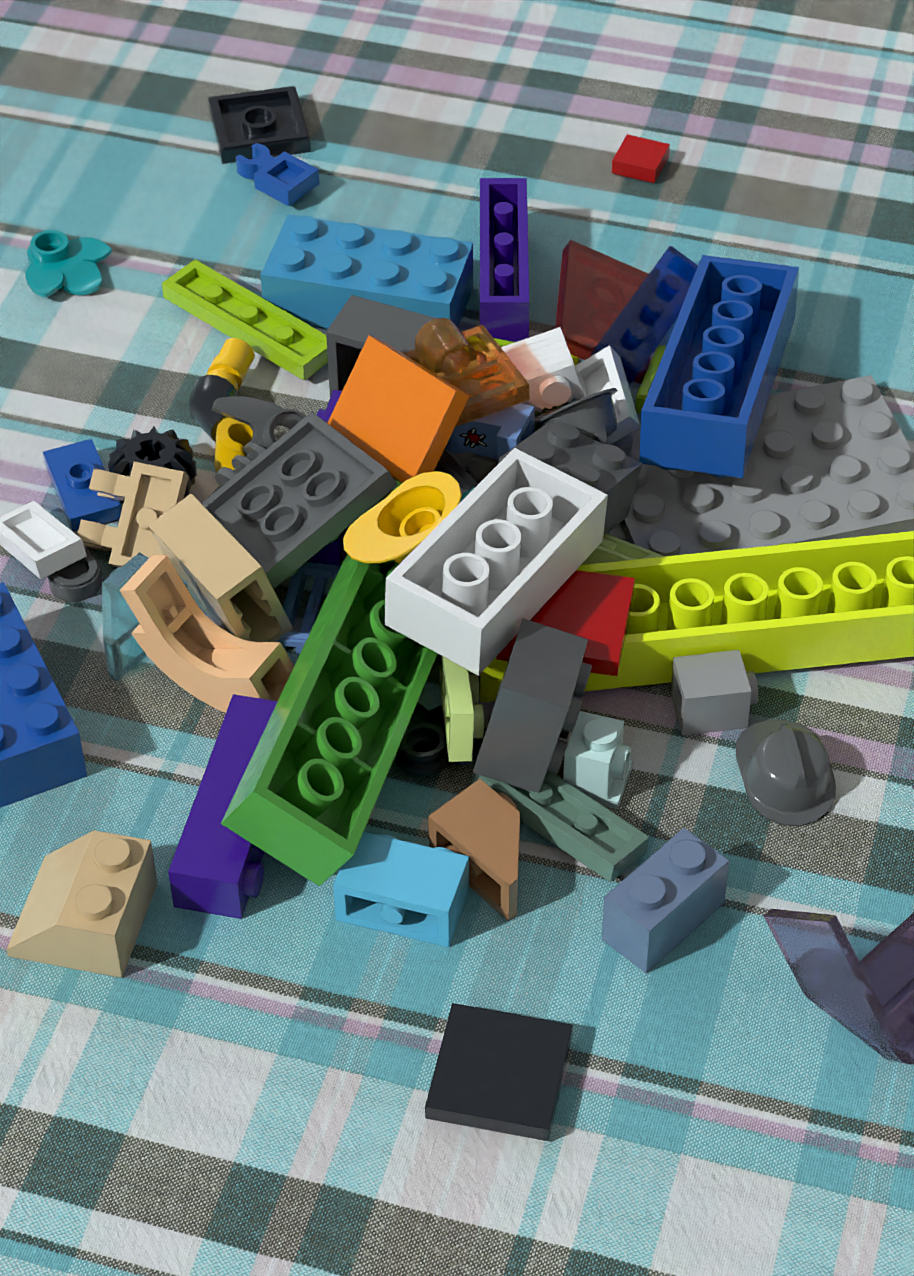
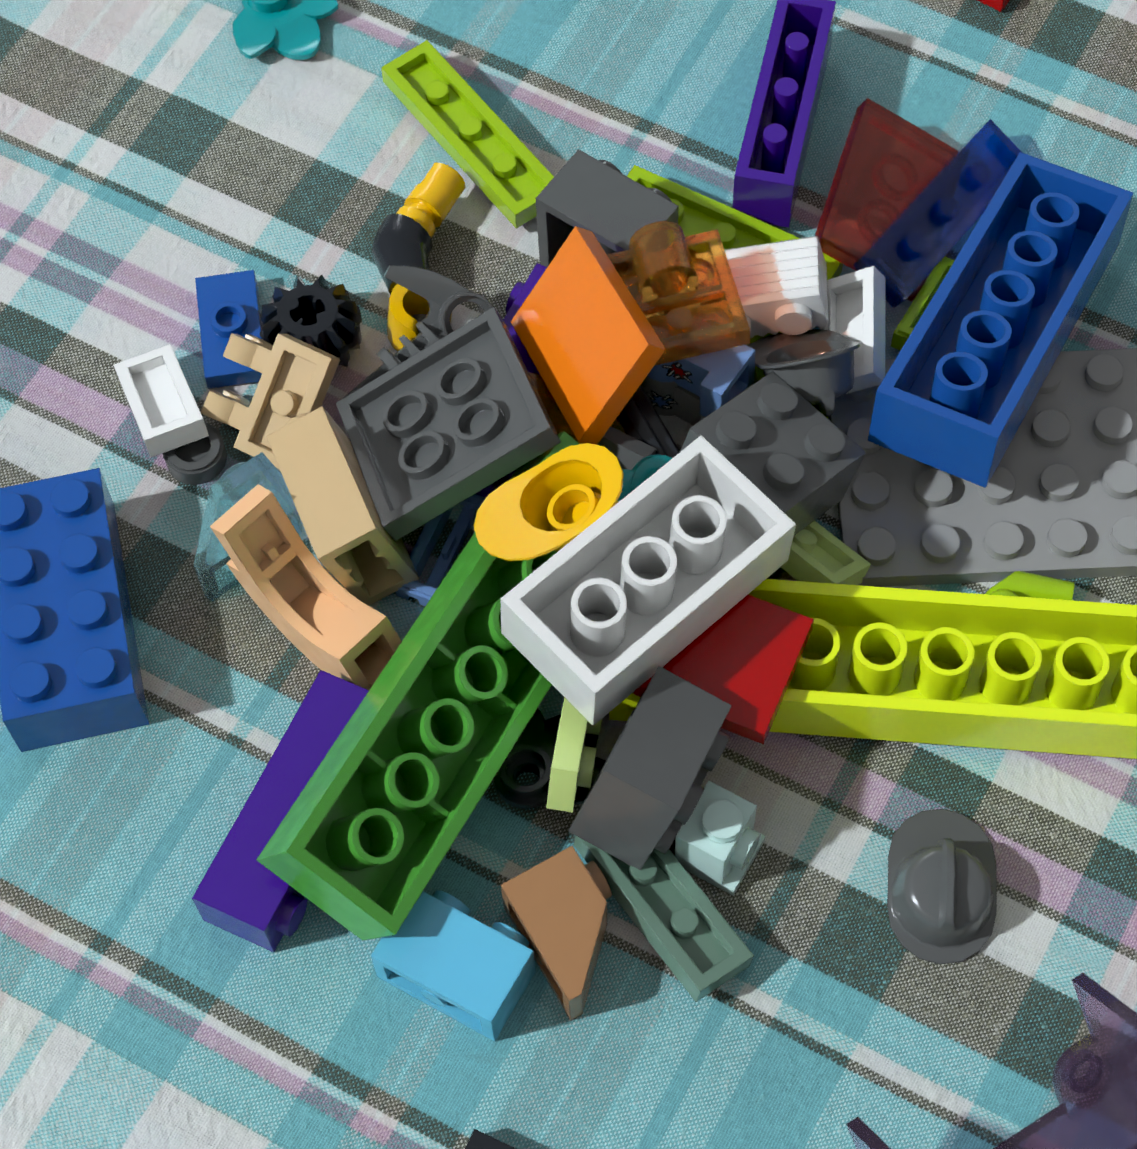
camera: 15 degrees right, 15 degrees up
(87, 904) = (103, 908): tan slope -> none
(326, 261) = (619, 100): dark azure brick -> none
(664, 900) = (749, 1048): sand blue brick -> none
(712, 692) = (880, 768): light grey brick -> none

